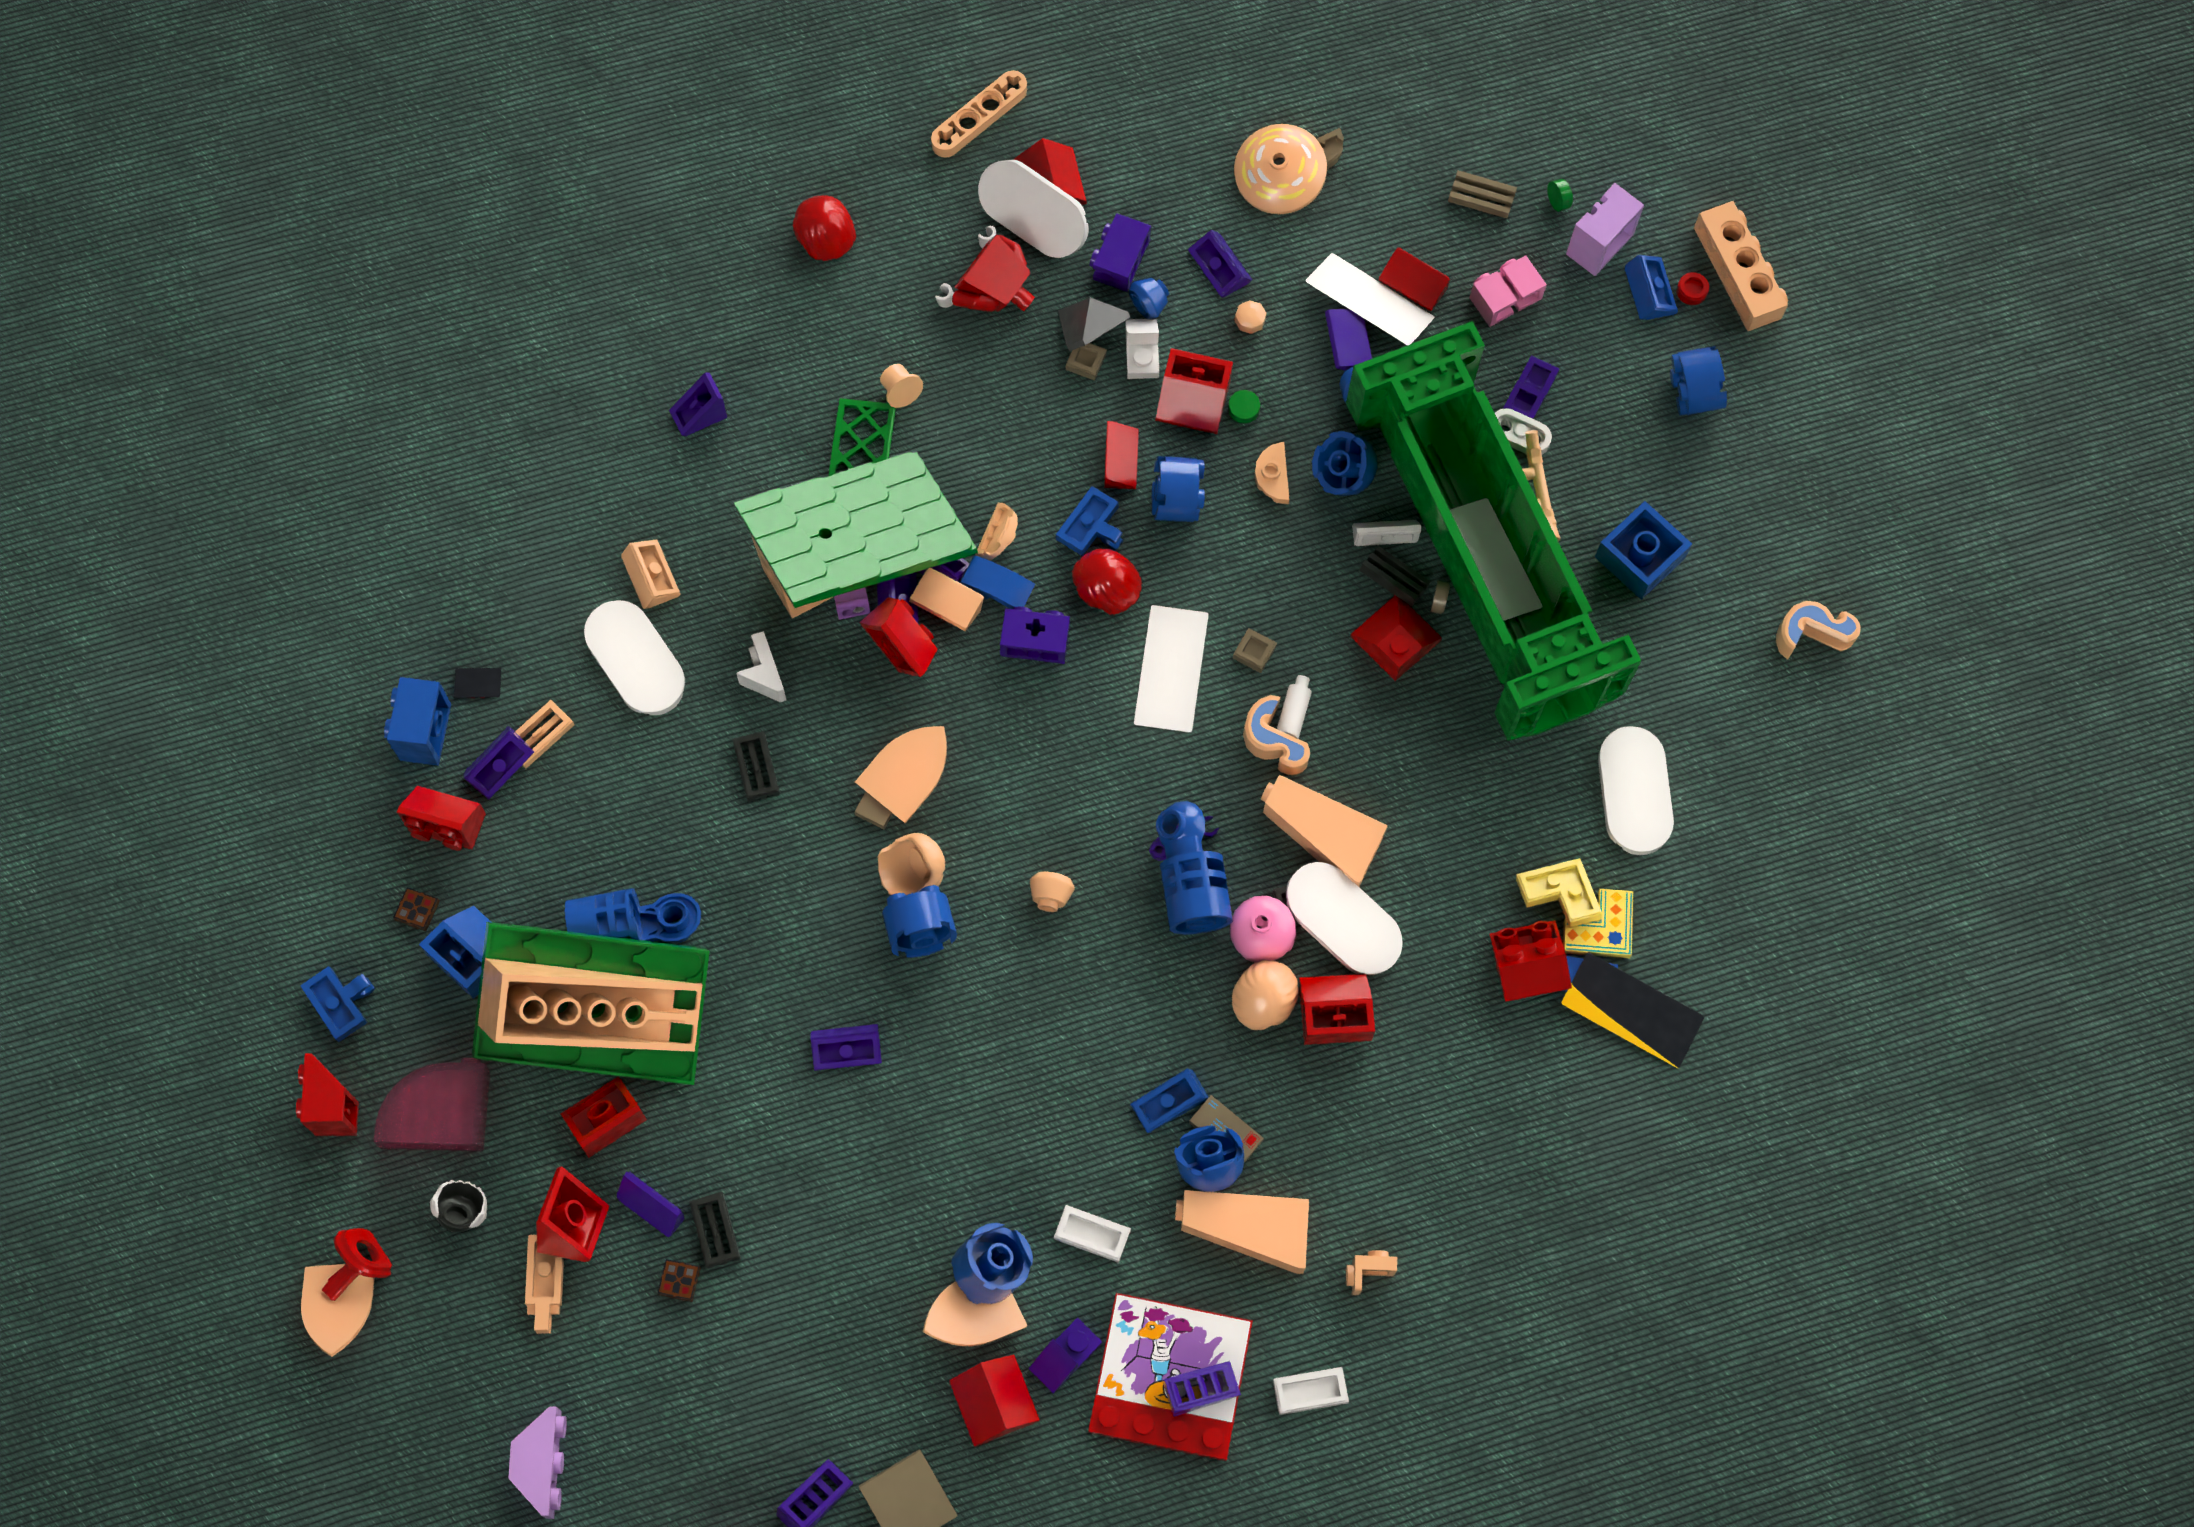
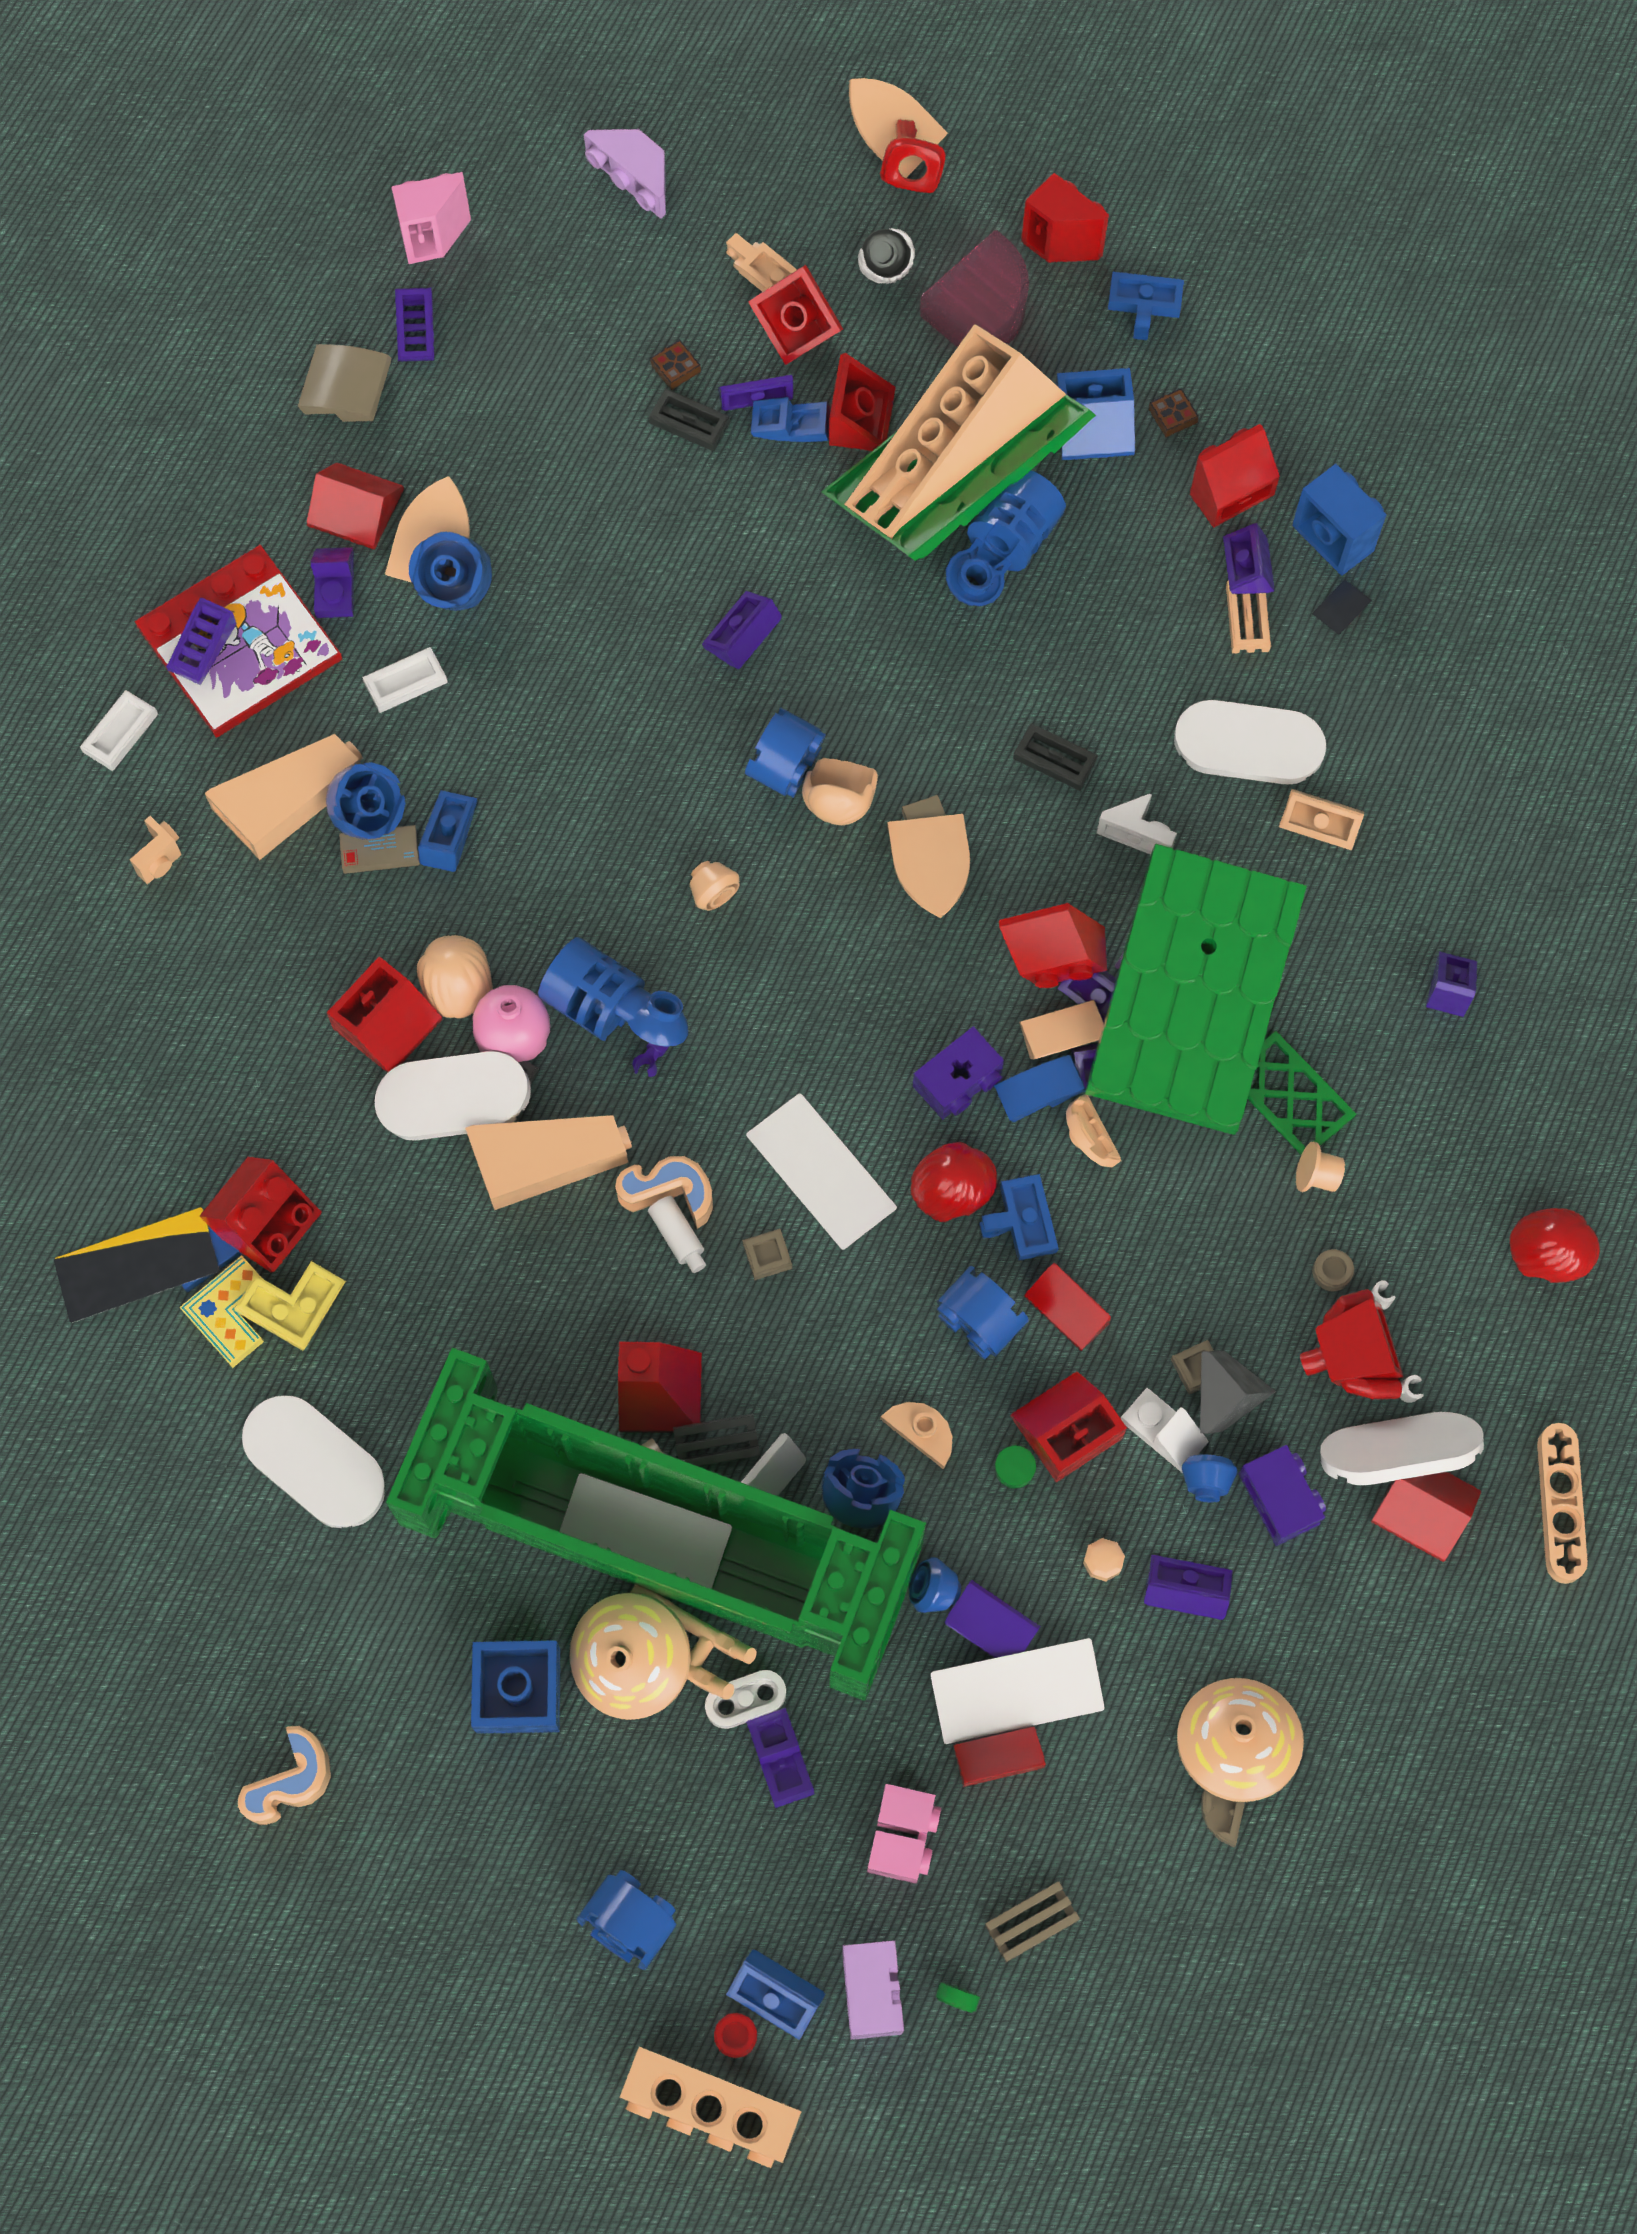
camera: 135 degrees right, 0 degrees up
(653, 1158) = (787, 422): none -> blue slope
(953, 335) = (1333, 1270): none -> dark tan tile
(1577, 525) = (654, 1652): none -> light nougat dish

